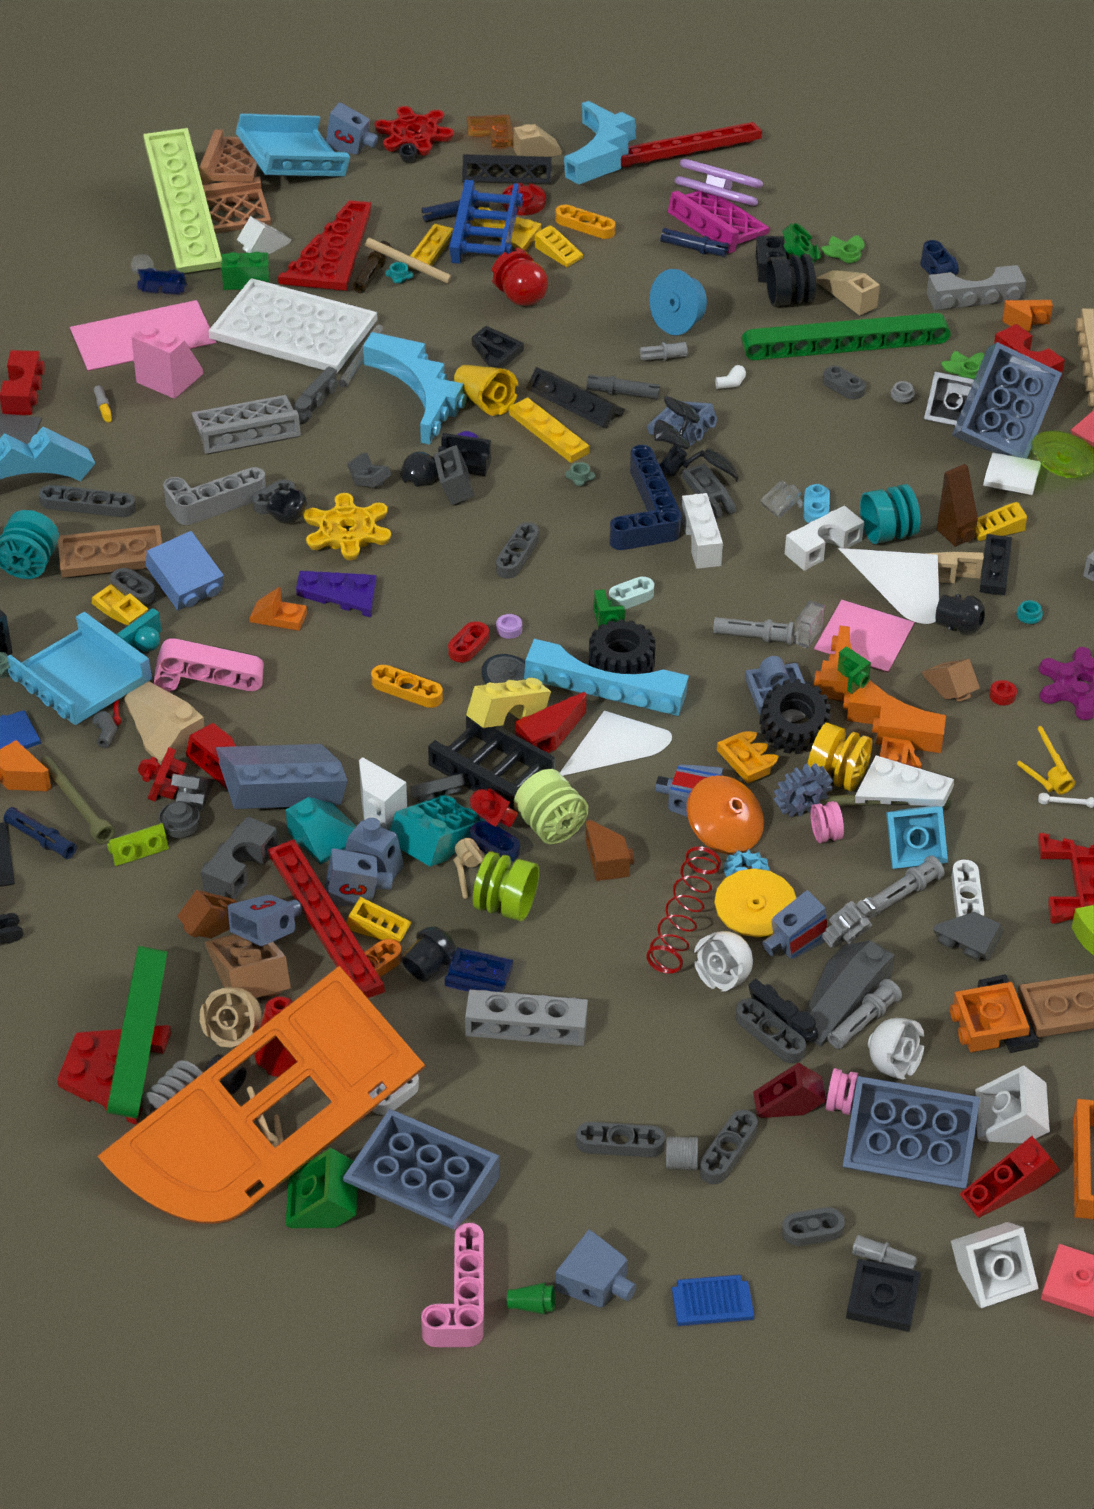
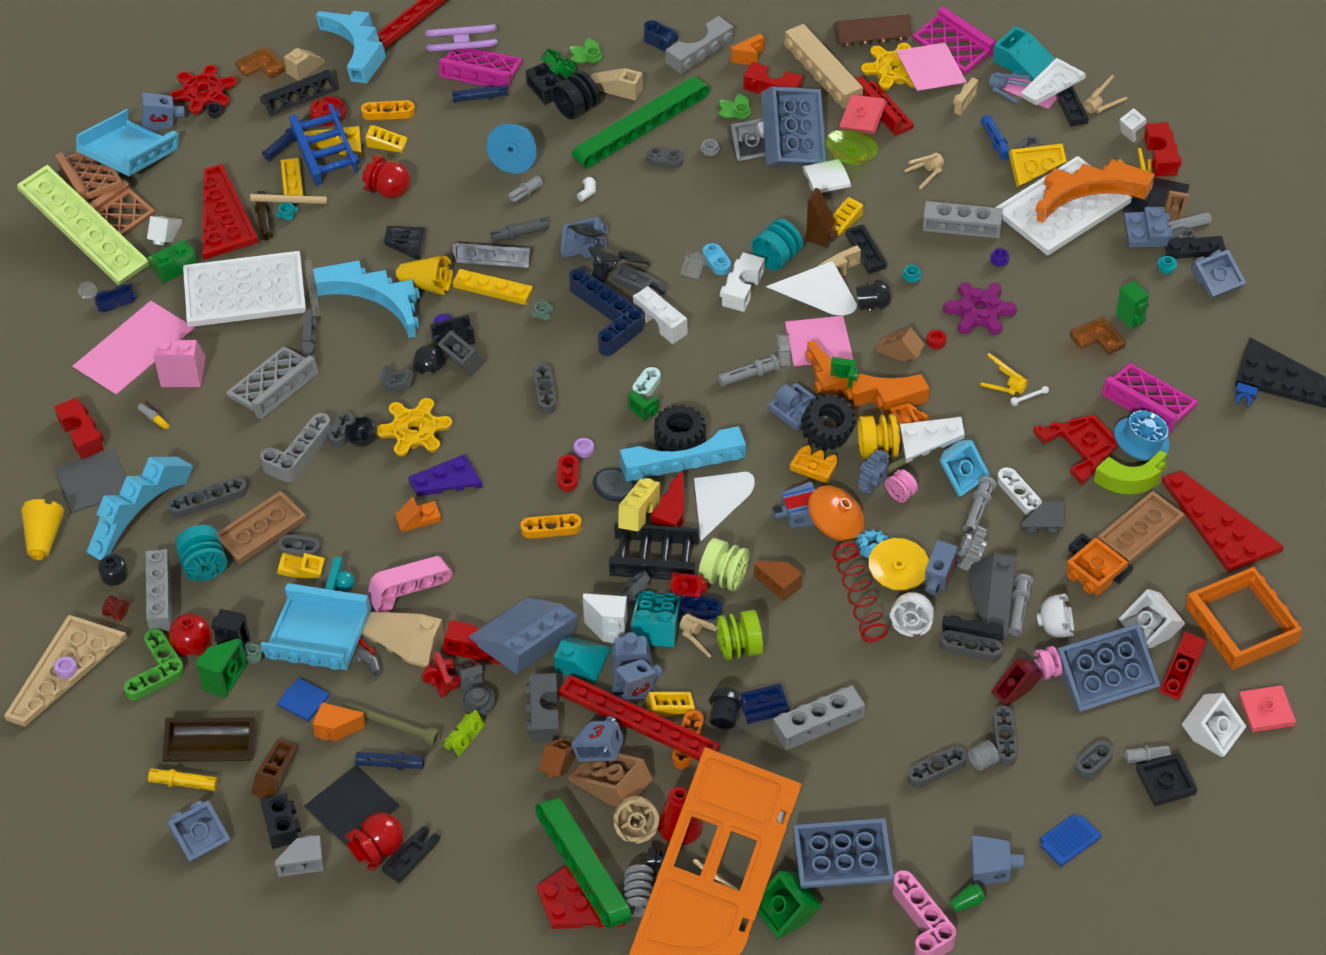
camera: 30 degrees left, 5 degrees up
(184, 570) = (331, 517): medium blue brick -> none

